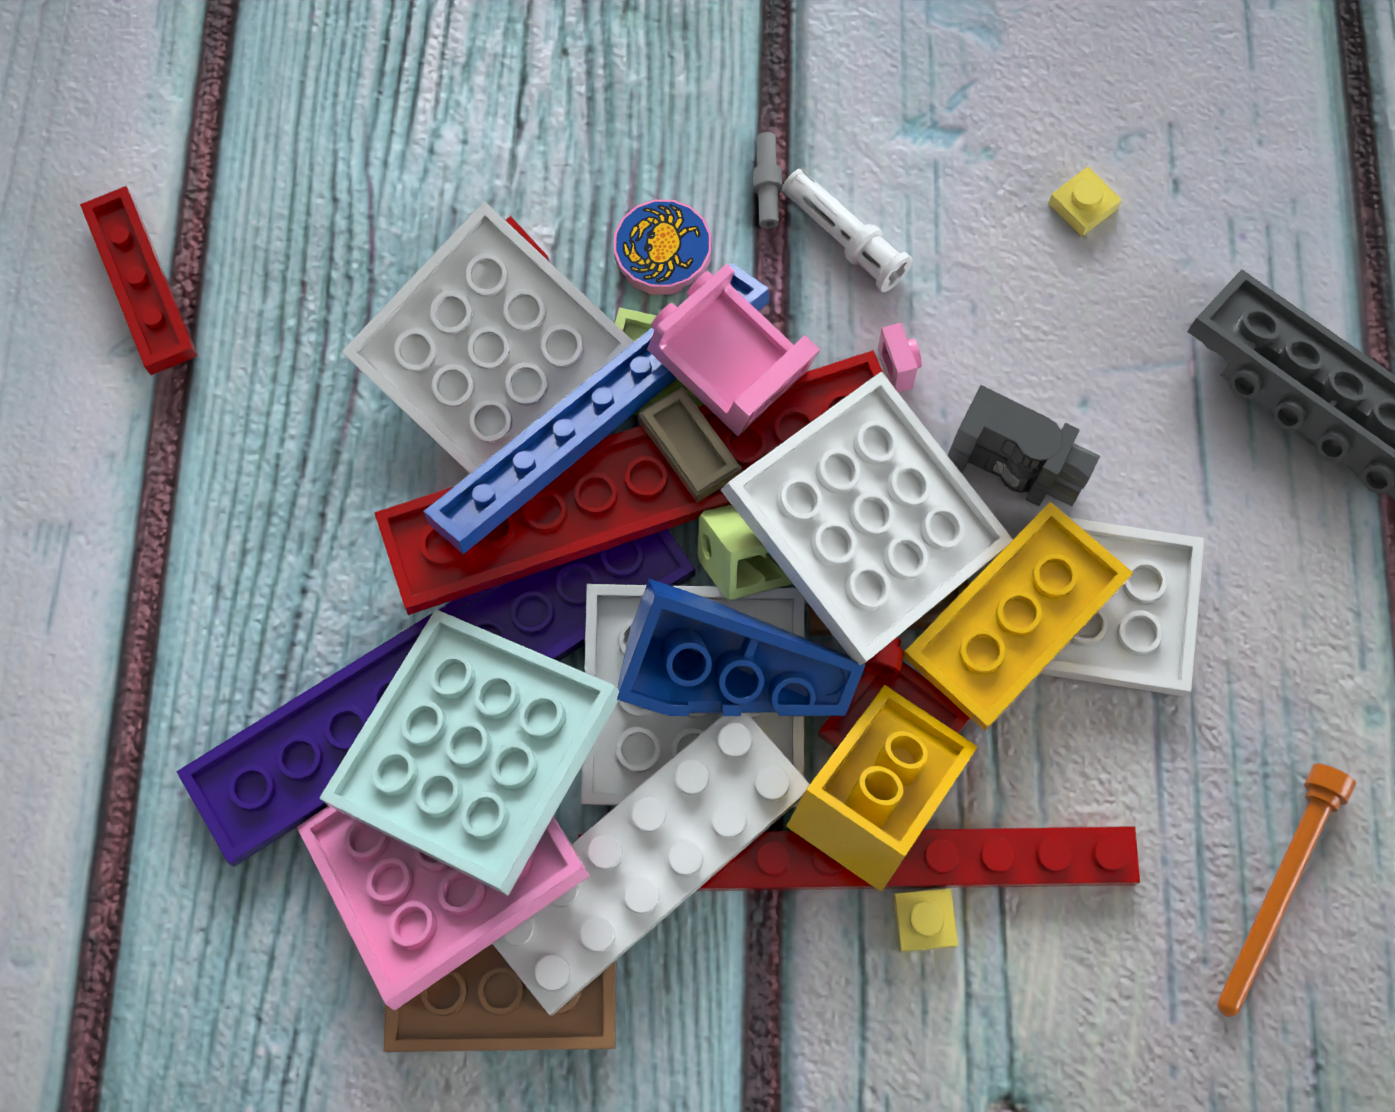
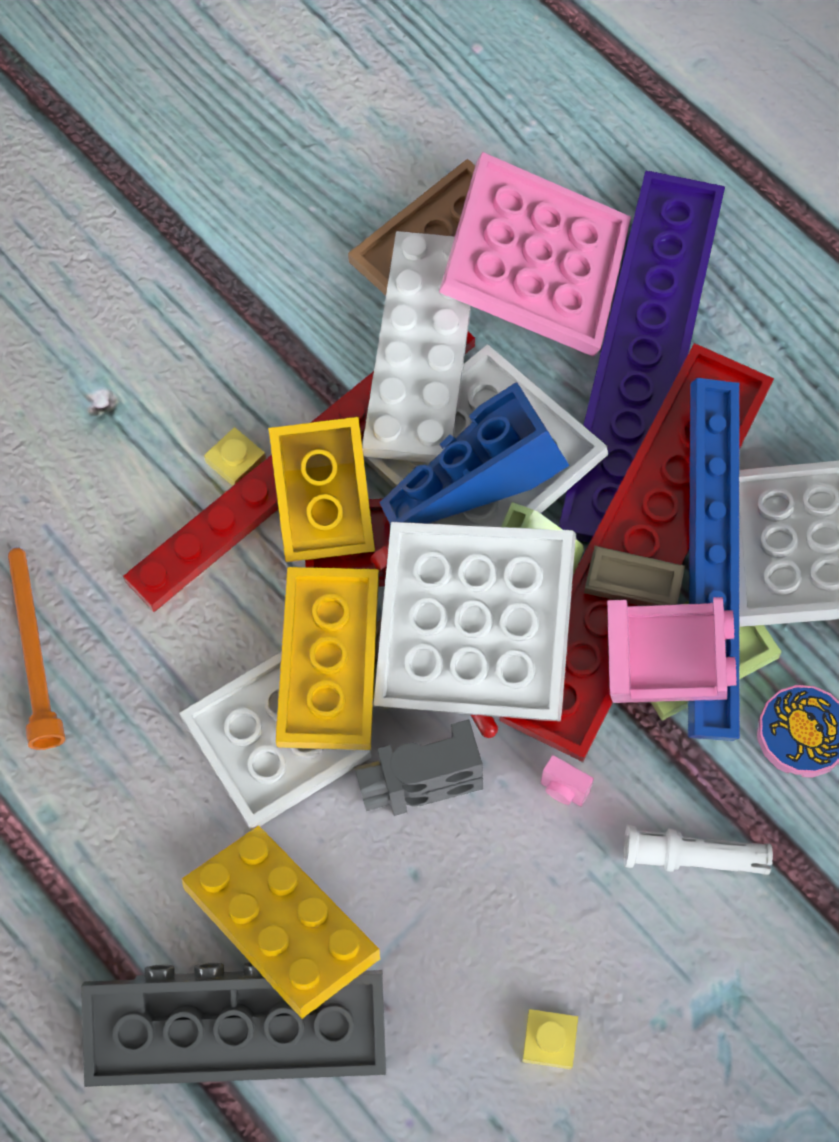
camera: 135 degrees right, 5 degrees down
(471, 749) = (573, 303): light aqua plate -> none
(767, 180) = (787, 845): light grey bar -> none
(1244, 433) = (281, 921): none -> yellow plate

